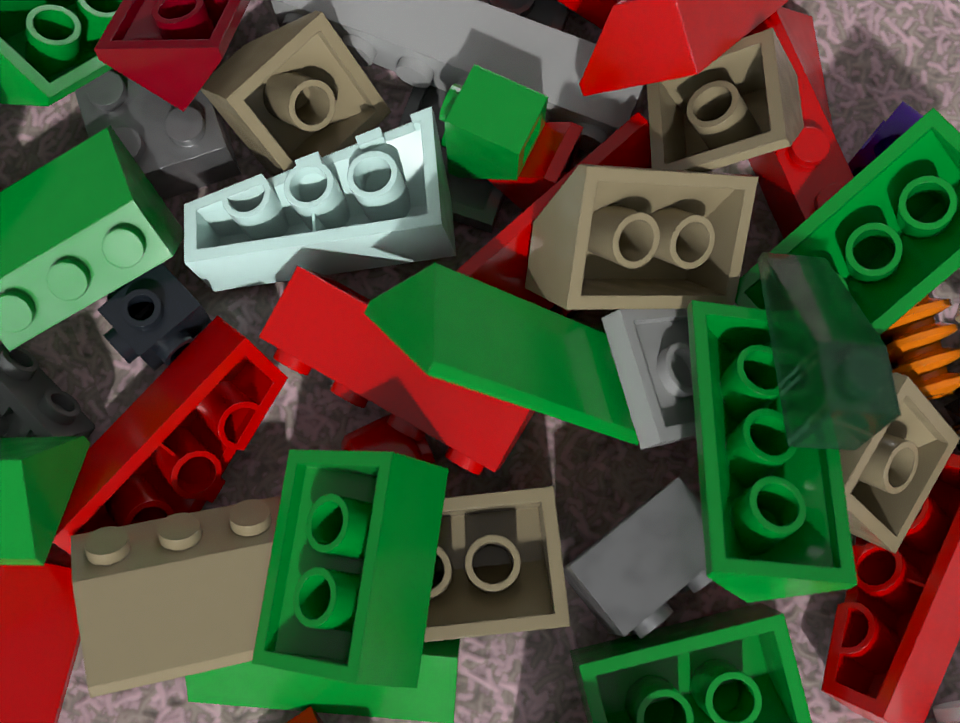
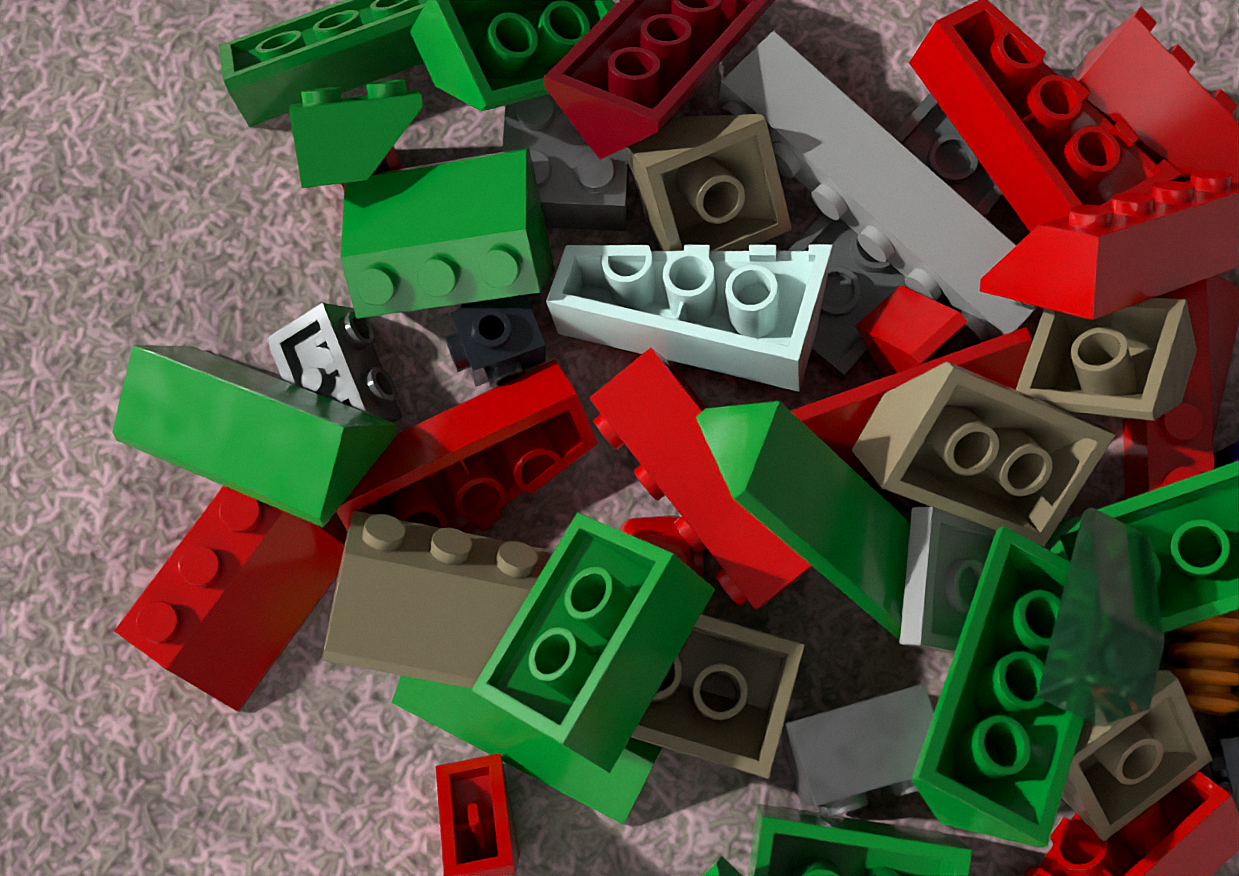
camera: 25 degrees right, 0 degrees up
(490, 125) = (880, 286): green slope -> none

